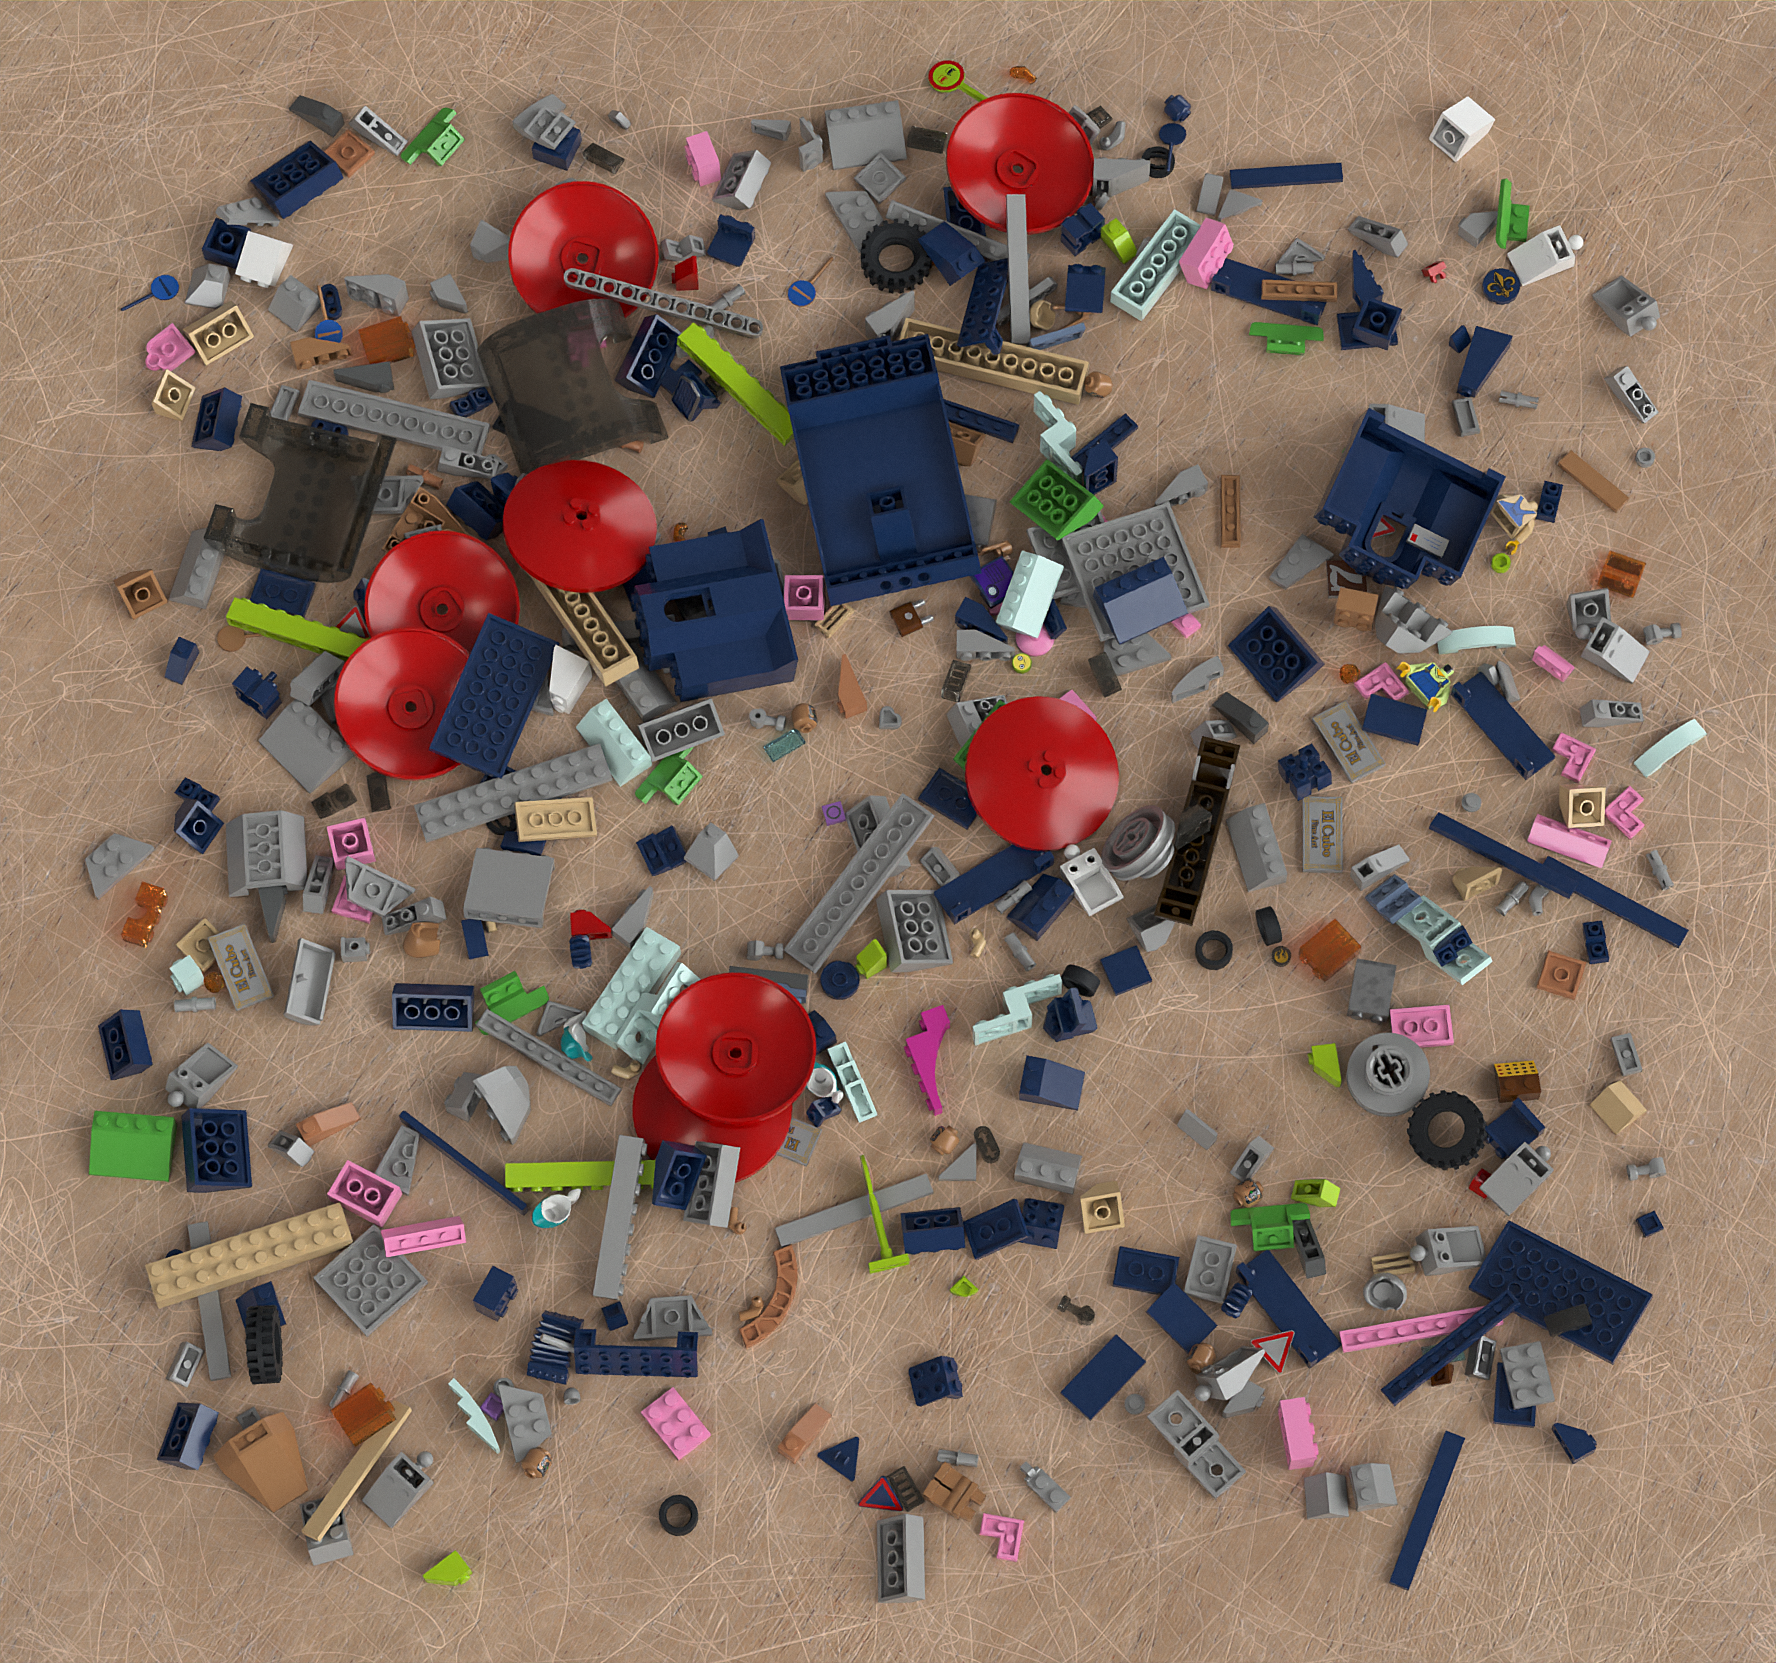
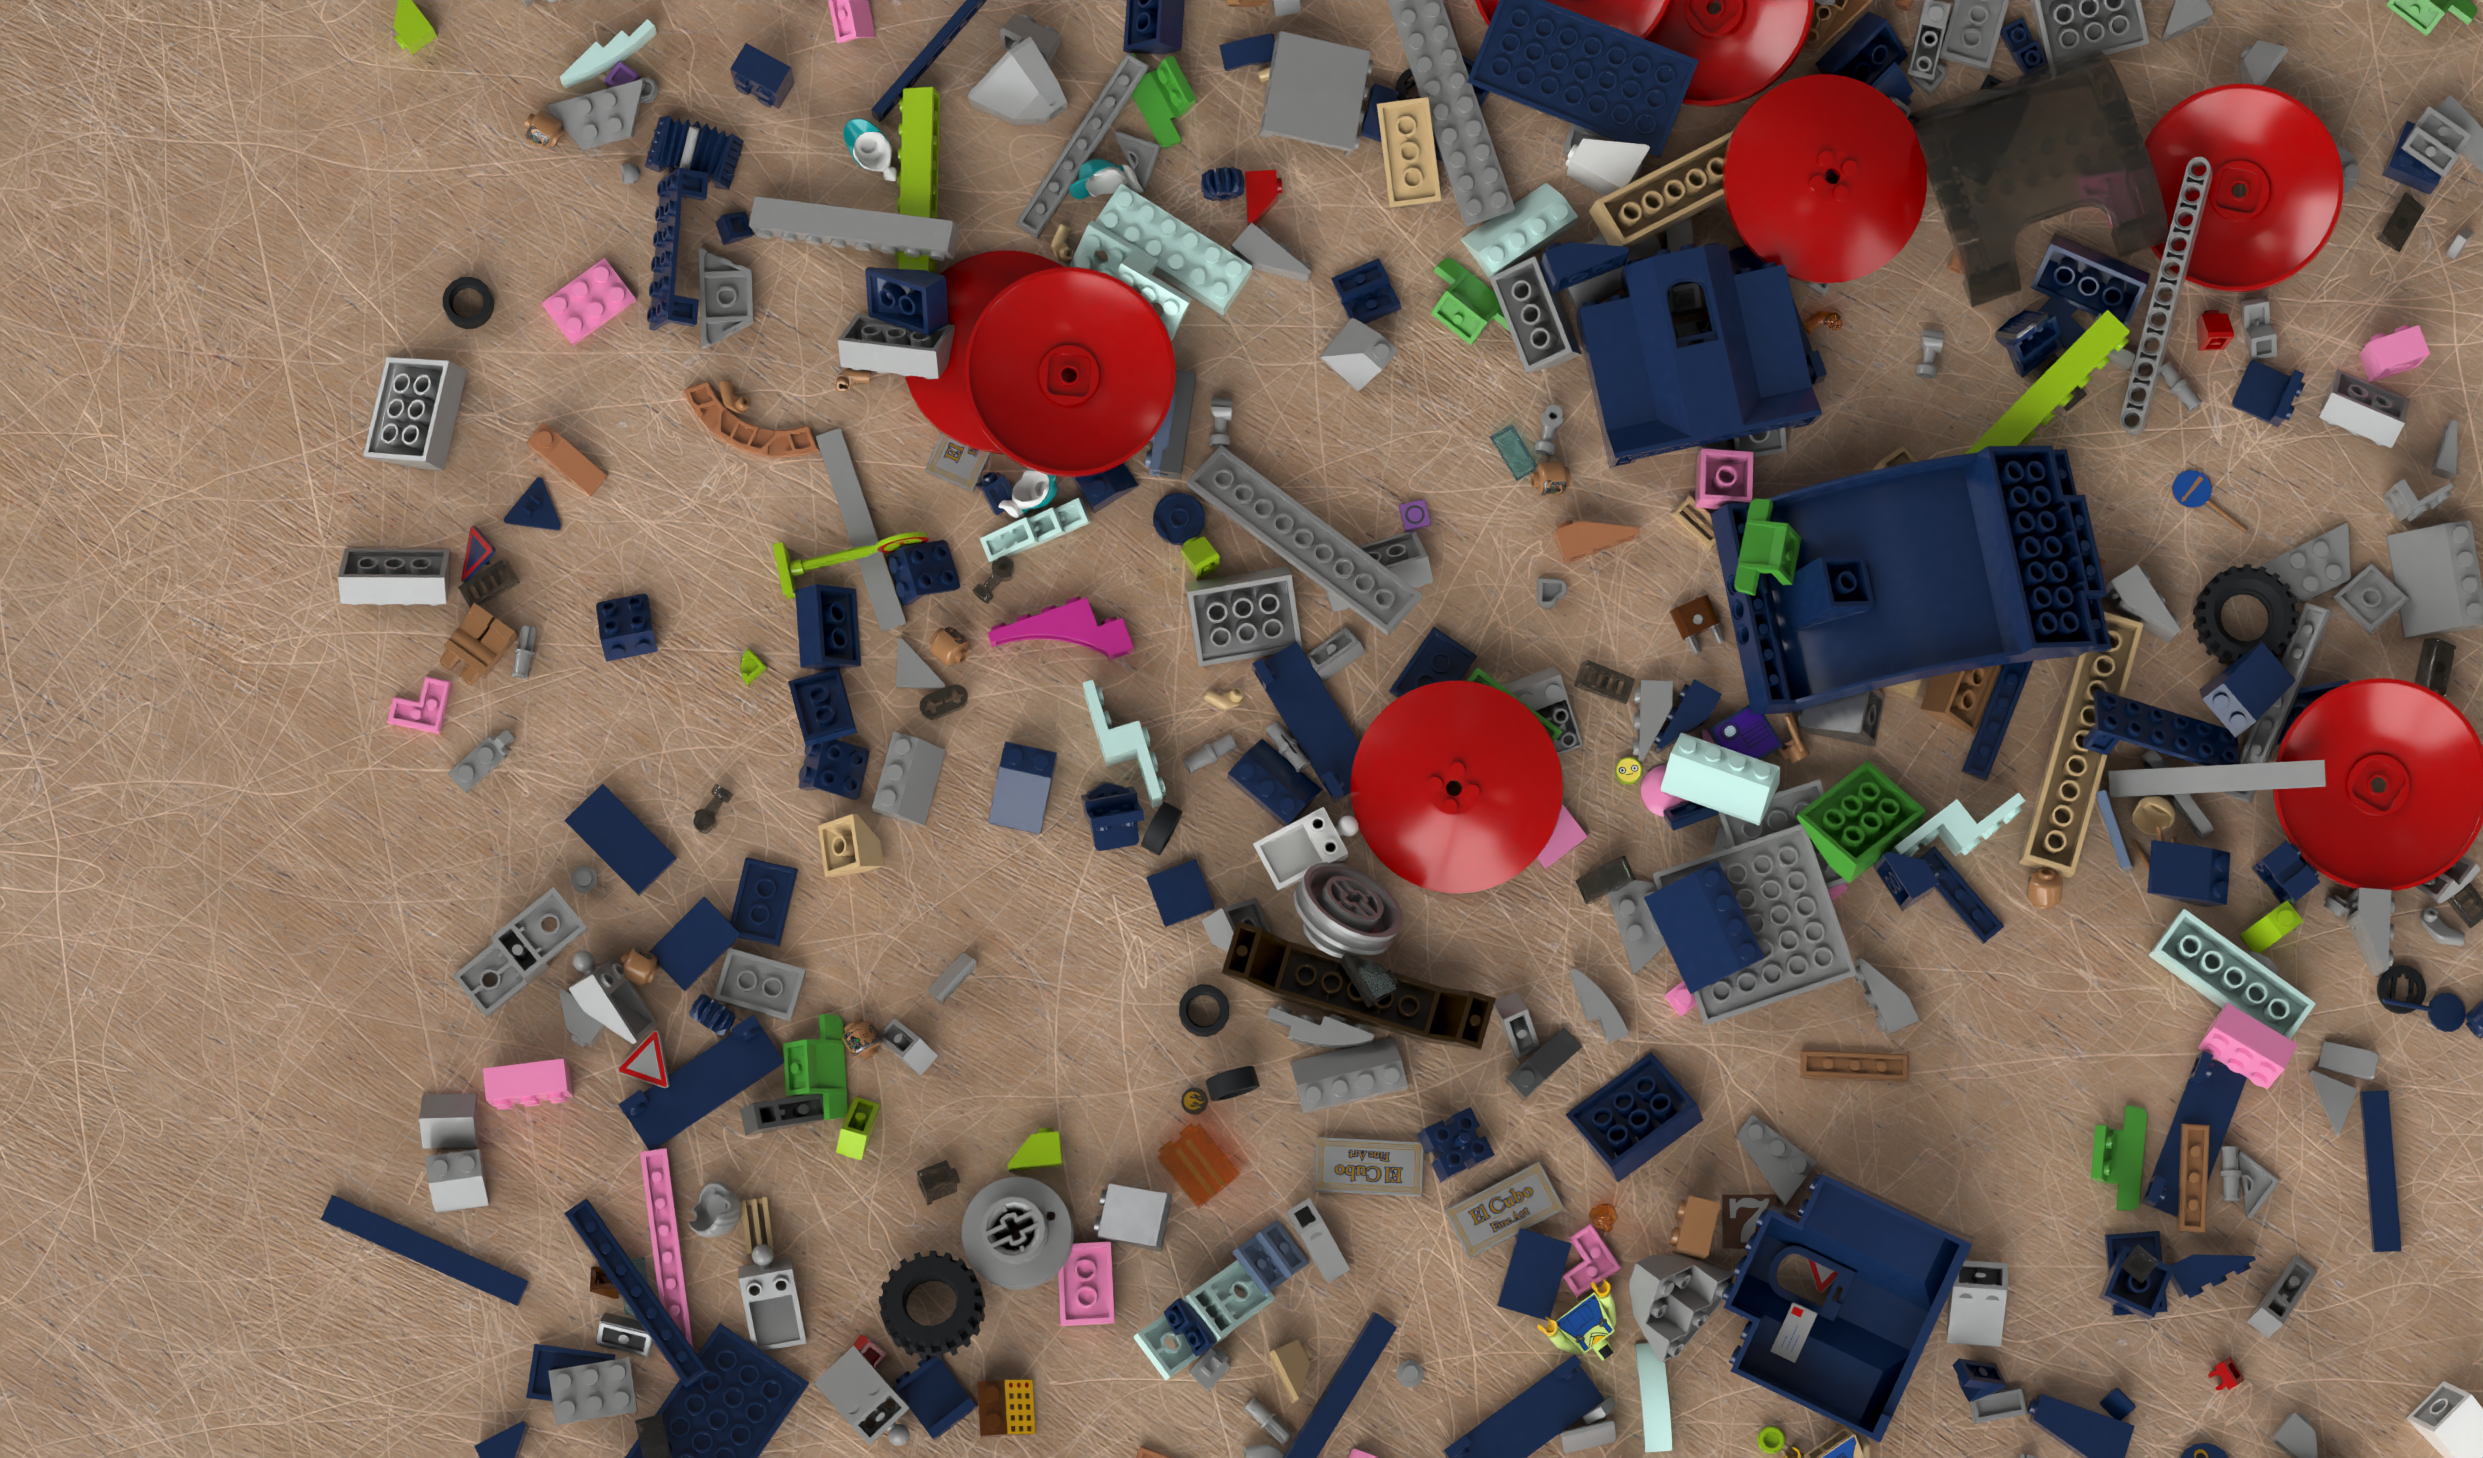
camera: 85 degrees right, 10 degrees up
(649, 700) = (1578, 262): none -> dark blue slope
(697, 461) = (1931, 343): none -> light grey leg
(768, 1552) = (415, 412): none -> light grey slope
(860, 561) = (1766, 549): none -> bright green plate
(884, 1105) = (1001, 571): none -> clear smoke leg
(887, 1162) = (923, 570): none -> dark blue bracket
(1225, 864) = (1330, 1034): none -> light grey slope
(1356, 1140) = (938, 1173): none -> clear smoke brick
(1366, 316) = (2139, 1263): none -> clear smoke plate
(1449, 426) = (1978, 1378): none -> dark blue slope
(1480, 936) = (1210, 1369): none -> light grey brick

